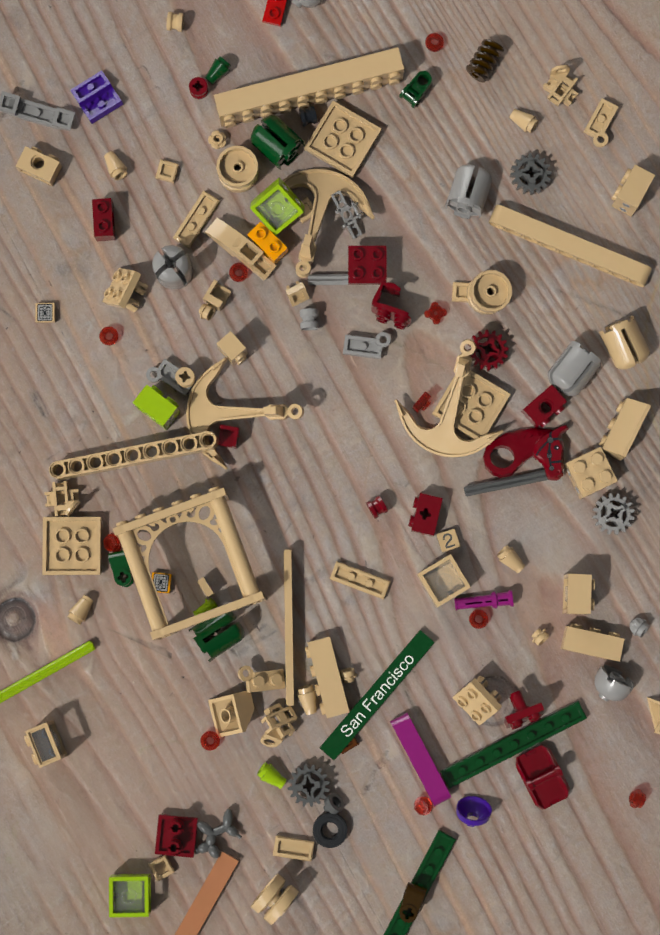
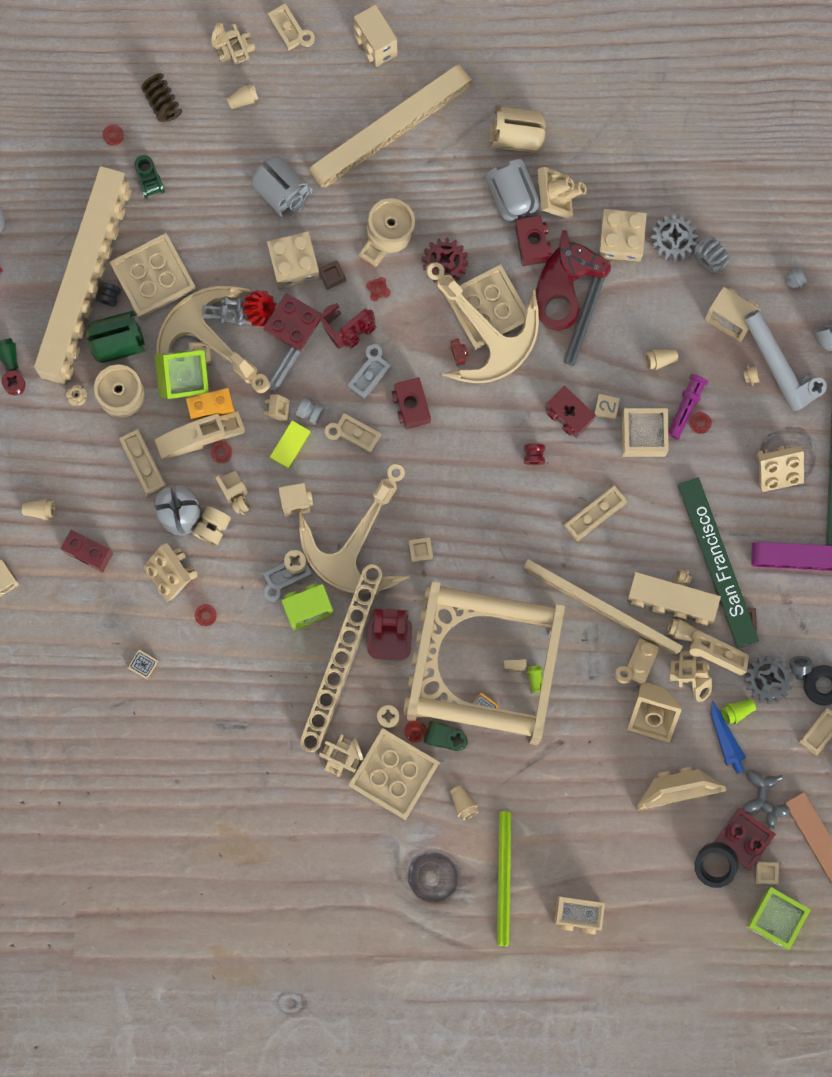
camera: 60 degrees left, 5 degrees down
(114, 517) = (388, 721): none -> tan wheel
(130, 827) = (704, 877): none -> black tyre
(167, 171) = (76, 462): tan tile -> none
(173, 480) = (389, 634): none -> dark red piece
(184, 299) = (215, 519): none -> tan wheel
(185, 763) = (679, 787): none -> tan wedge
(205, 744) = (675, 750): clear red plate -> none
(222, 641) = (579, 680): dark green cylinder -> none
(228, 436) = (378, 555): dark red panel -> none
(243, 781) = (729, 746): none -> blue bar
(252, 465) = (420, 550): none -> tan plate
(275, 320) = (290, 444): none -> neon yellow tile
(305, 736) = (719, 653): none -> tan plate
(312, 362) = (354, 432): none -> tan hinge
(357, 402) = (411, 390): none -> dark red brick
(364, 233) = (258, 307): none -> red gear
(418, 235) = (293, 260): none -> tan piece
(425, 272) = (332, 275): none -> reddish brown tile
(522, 711) = (815, 431): dark red plate -> none
(537, 172) = (303, 129): dark grey gear -> none
(545, 679) = (796, 392): none -> light grey axle
(592, 642) = (793, 323): tan brick -> none
(593, 403) = (557, 192): none -> tan plate
(616, 551) = (711, 255): none -> light grey gear
(624, 428) = (599, 176): tan slope -> none

